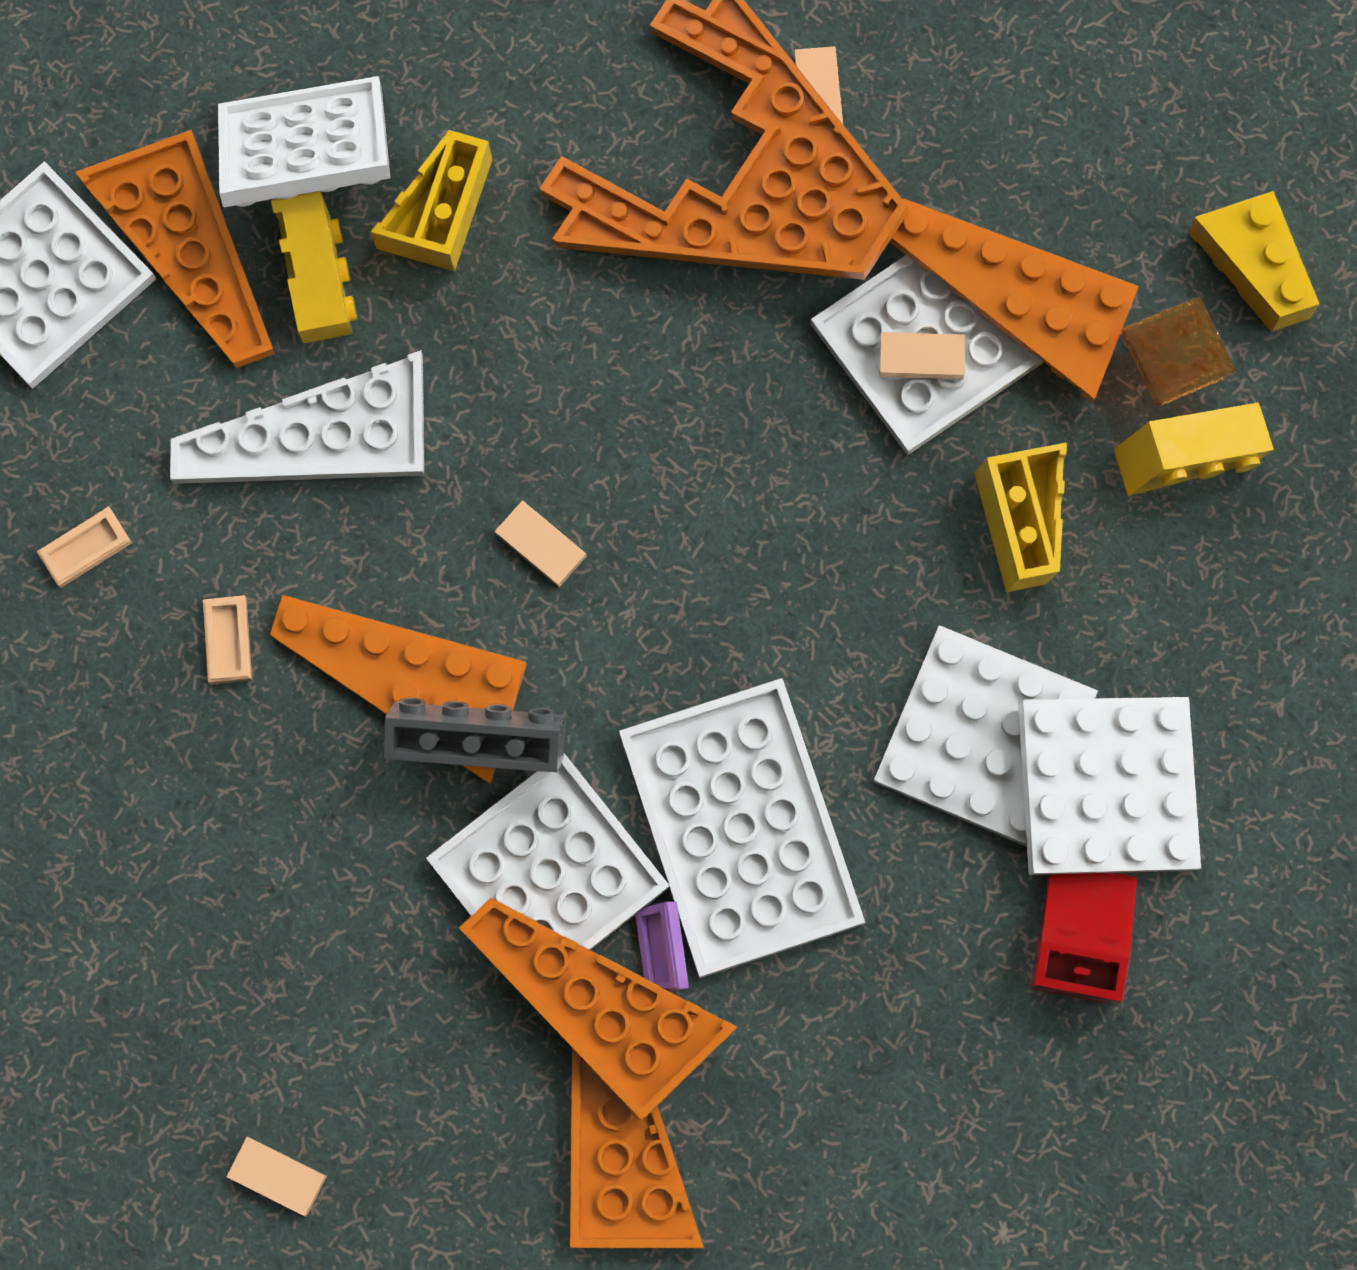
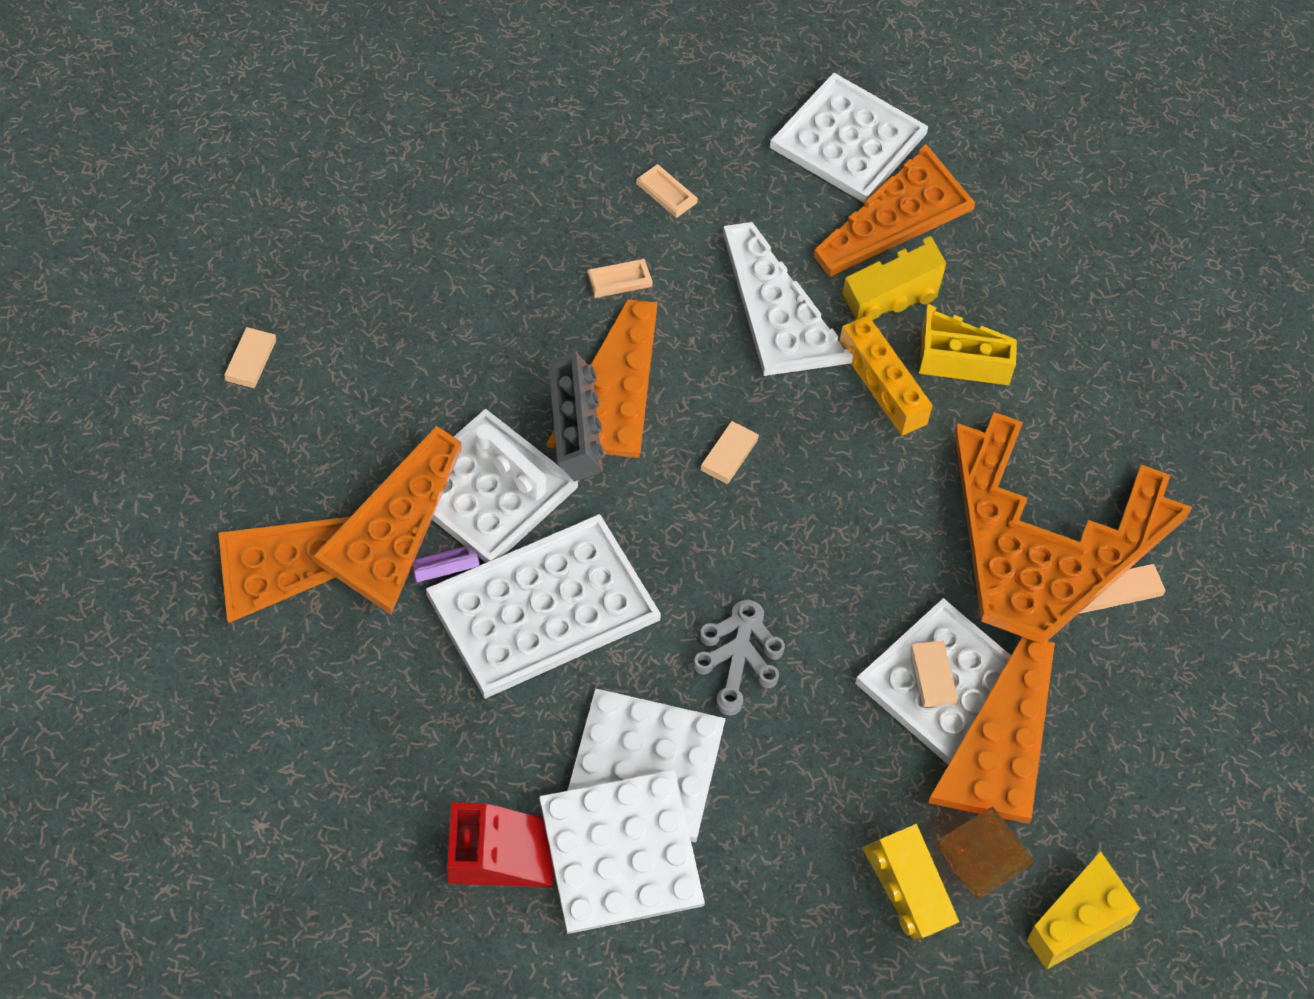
camera: 70 degrees right, 20 degrees down
(302, 142) = (982, 256): white plate -> none
(460, 314) = (886, 376): none -> light orange brick
(529, 837) = (510, 461): none -> white plate
(844, 587) = (739, 650): none -> light grey plant
(1023, 513) = (827, 762): yellow wedge -> none

